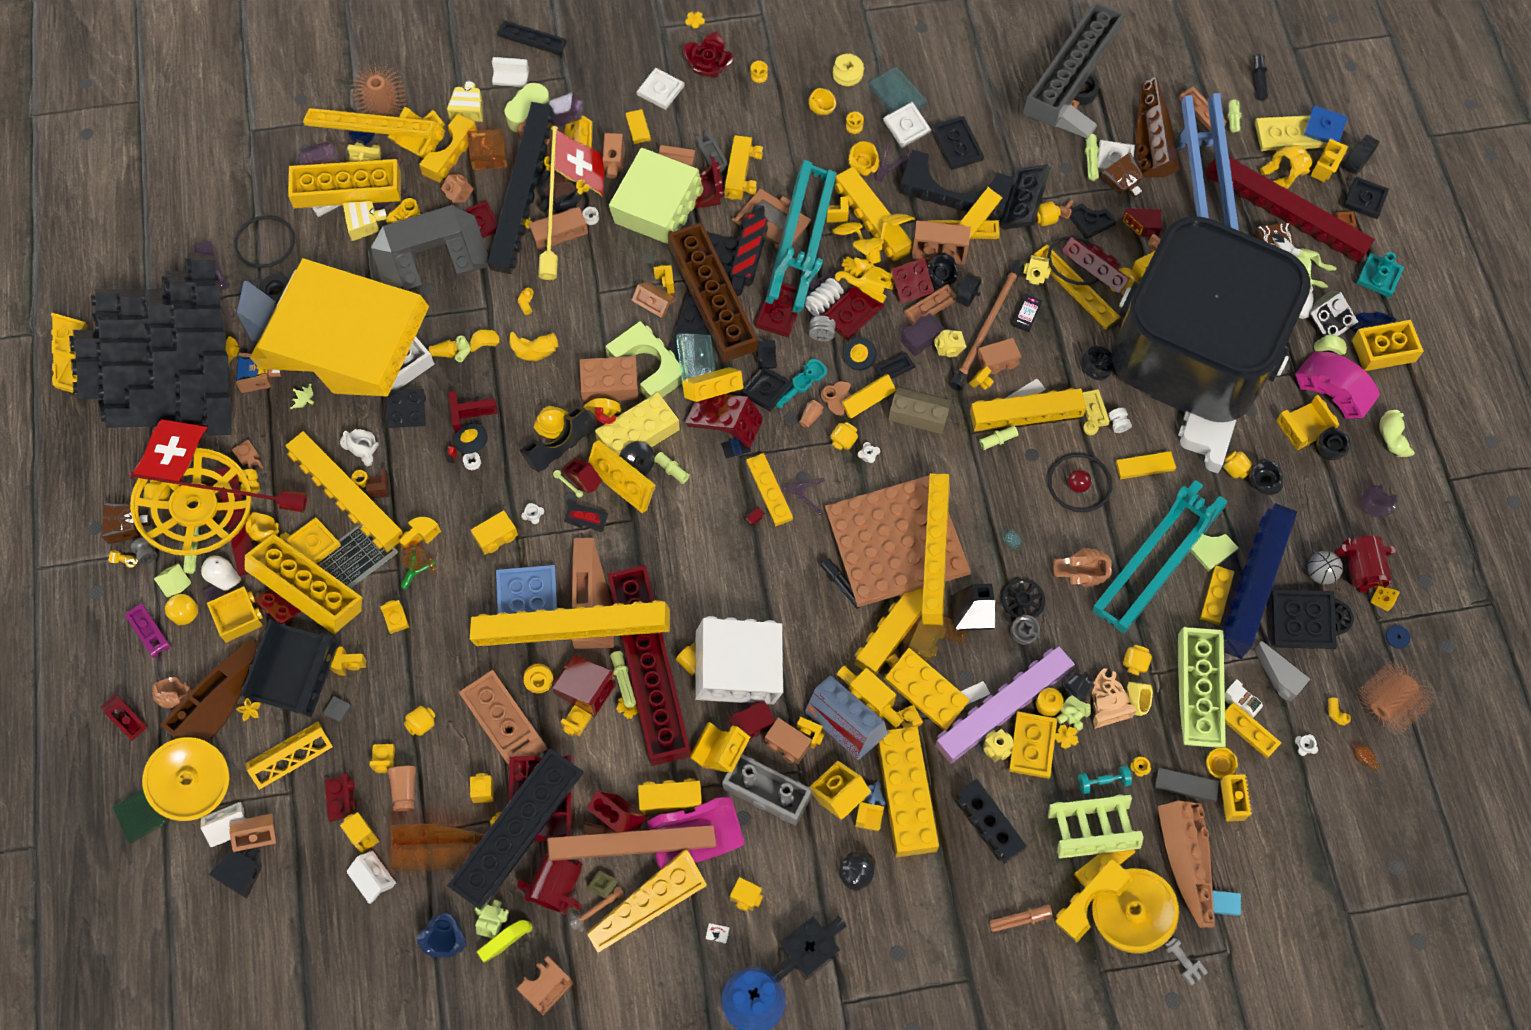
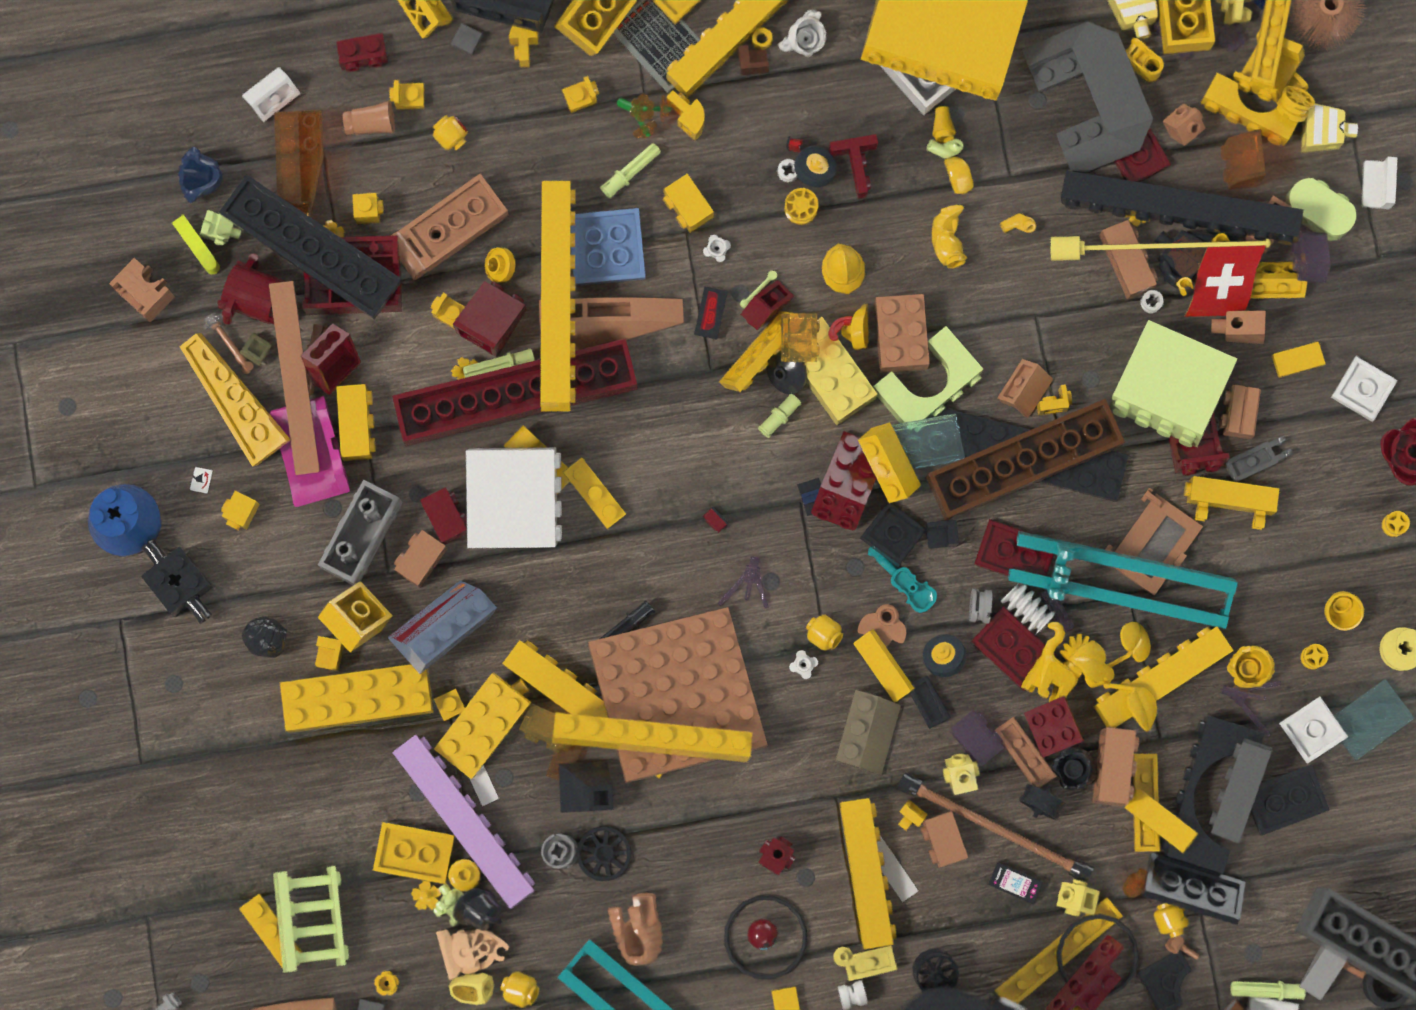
camera: 90 degrees right, 15 degrees up
(359, 832) = (315, 75): yellow brick -> none
(406, 408) = (857, 86): black hinge -> none
(448, 114) = (1295, 104): none -> yellow wheel
(469, 584) = (622, 177): none -> yellowish green axle
(502, 451) = (801, 206): none -> yellow wheel
(576, 426) = (794, 255): black arch -> none
(614, 438) = (799, 337): none -> clear yellow brick
(719, 748) = (408, 477): yellow panel -> none
(734, 602) = (594, 493): none -> yellow plate
(749, 249) = (1100, 510): black hinge -> none
(769, 489) = (752, 538): yellow plate -> none
(811, 413) = (858, 591): nougat cone -> none
(811, 729) = (435, 582): yellow bracket -> none
(838, 213) = (1167, 630): yellow panel -> none
(872, 693) = (471, 656): yellow brick -> none
(875, 796) = (355, 662): medium blue piece -> none
(954, 163) = (1241, 790): none -> dark grey brick
(976, 793) = (355, 779): black brick -> none
(997, 751) = (418, 816): light yellow brick -> none
(998, 437) = (826, 833): yellowish green pin -> none
(1013, 539) = (682, 843): clear light blue hose -> none
(1018, 470) = (773, 864): none -> dark red brick
(1023, 235) = (1134, 883): none -> clear orange cylinder
(1032, 915) = (207, 826): nougat axle -> none
(1110, 880) = (201, 889): yellow arch -> none
(1124, 775) = (369, 936): teal wheel -> none
(1140, 916) = (209, 959): yellow dish -> none

